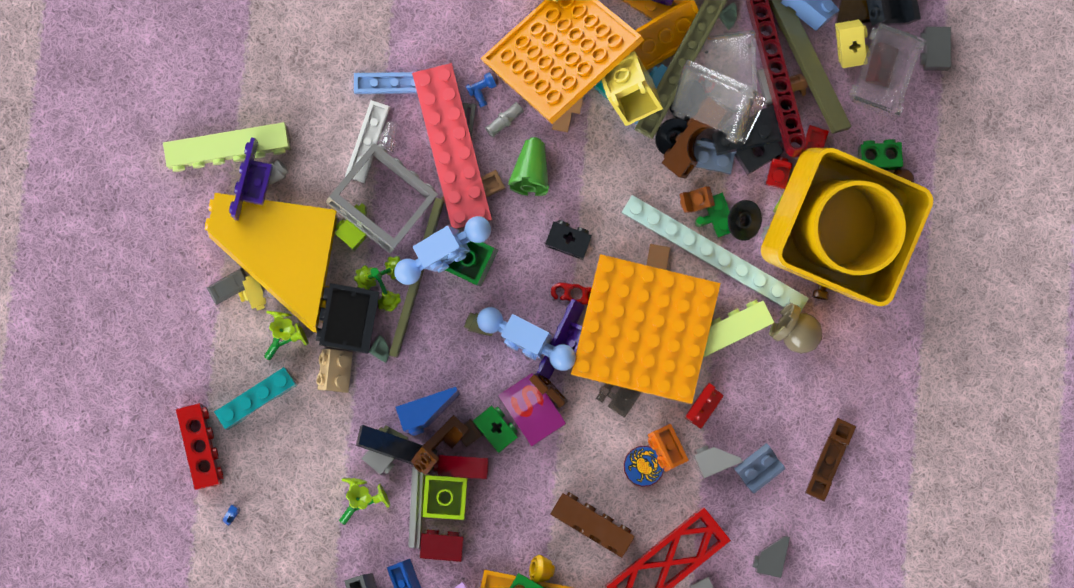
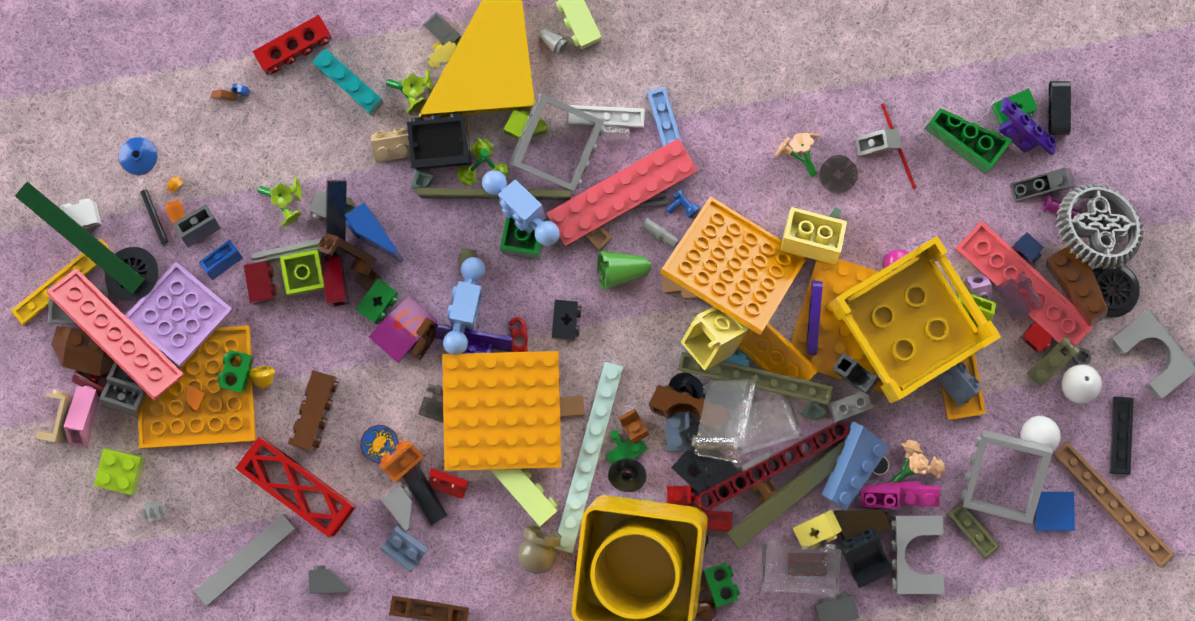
camera: 75 degrees right, 0 degrees up
(230, 535) = (217, 94): none -> dark orange tile
(253, 180) = (539, 23): dark purple bracket -> none
(710, 432) = (425, 495): none -> black tile

